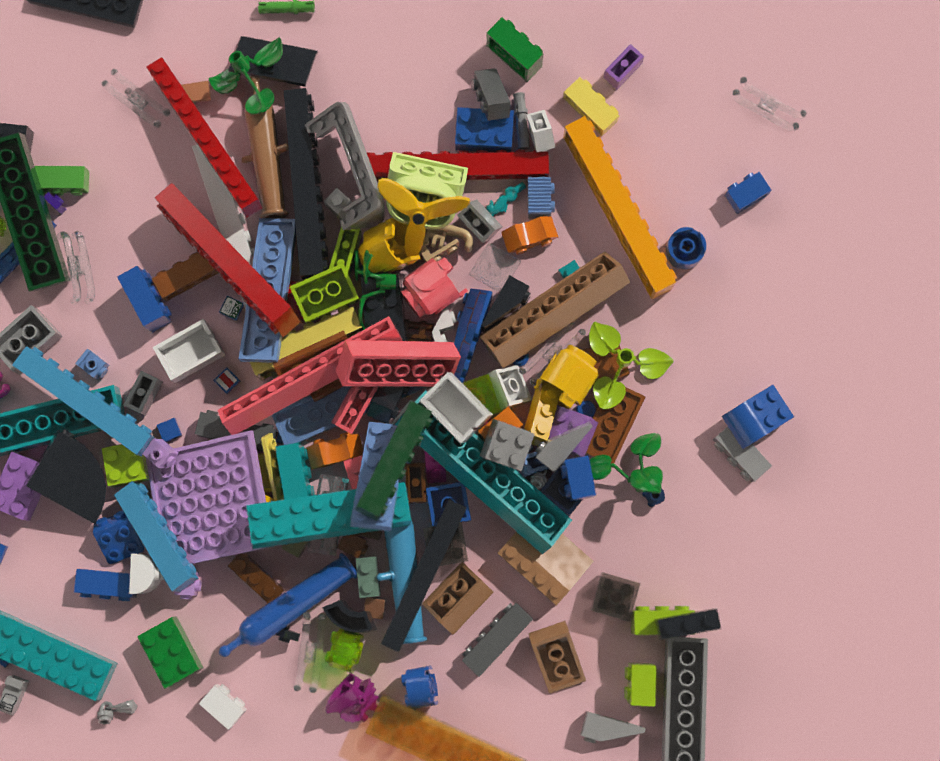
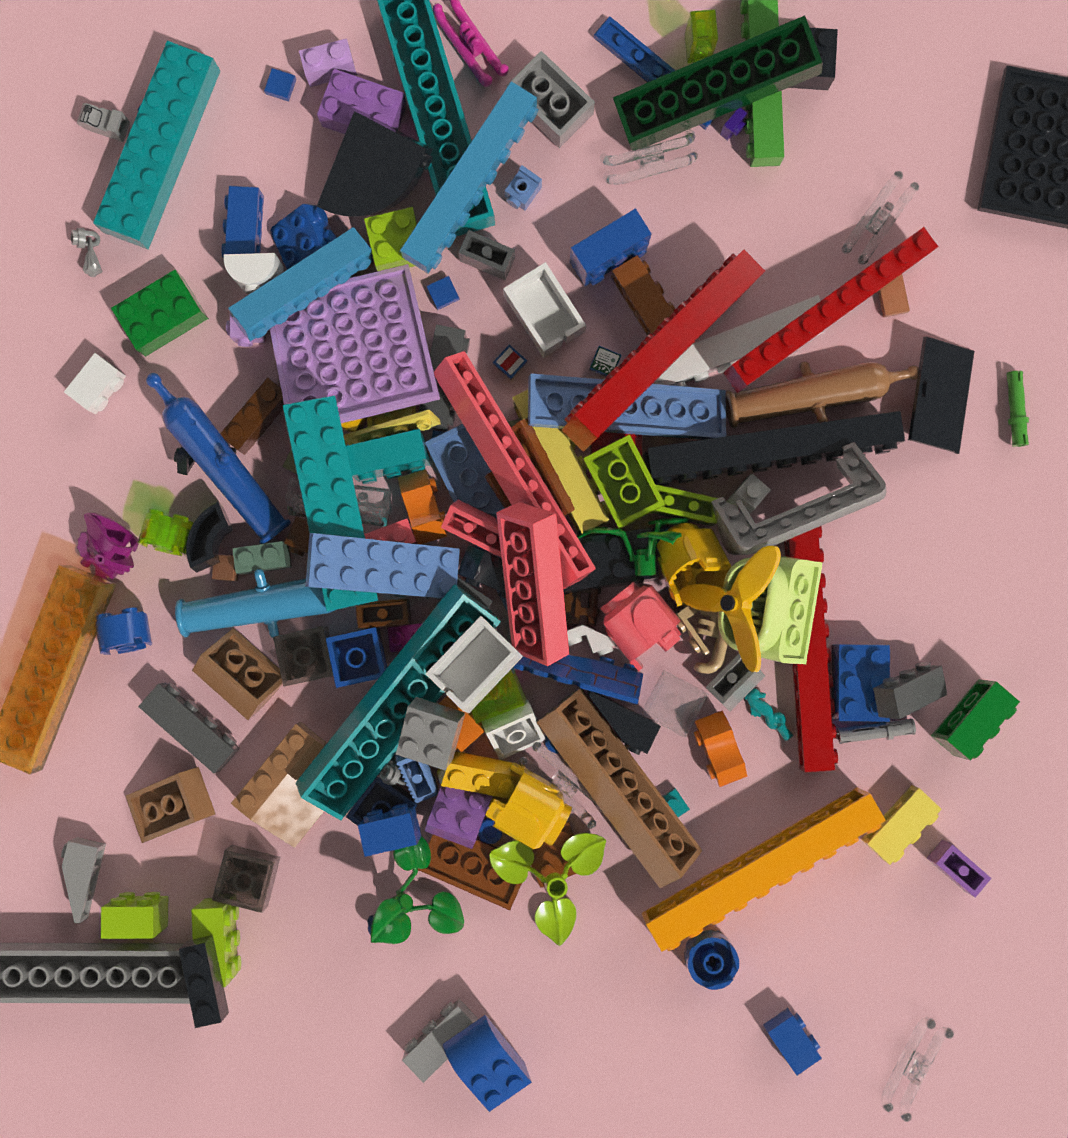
camera: 80 degrees right, 5 degrees up
(160, 453) = (407, 282): lavender brick -> none
(227, 81) = (910, 335): green plant -> none
(310, 652) = (165, 489): clear piece -> none
(393, 461) = (397, 586): dark green brick -> none
(423, 576) = (261, 630): black tile -> none
(540, 131) = (862, 759): white brick -> none
(540, 197) = (772, 760): medium blue brick -> none
(559, 447) = (431, 804): light grey slope -> none

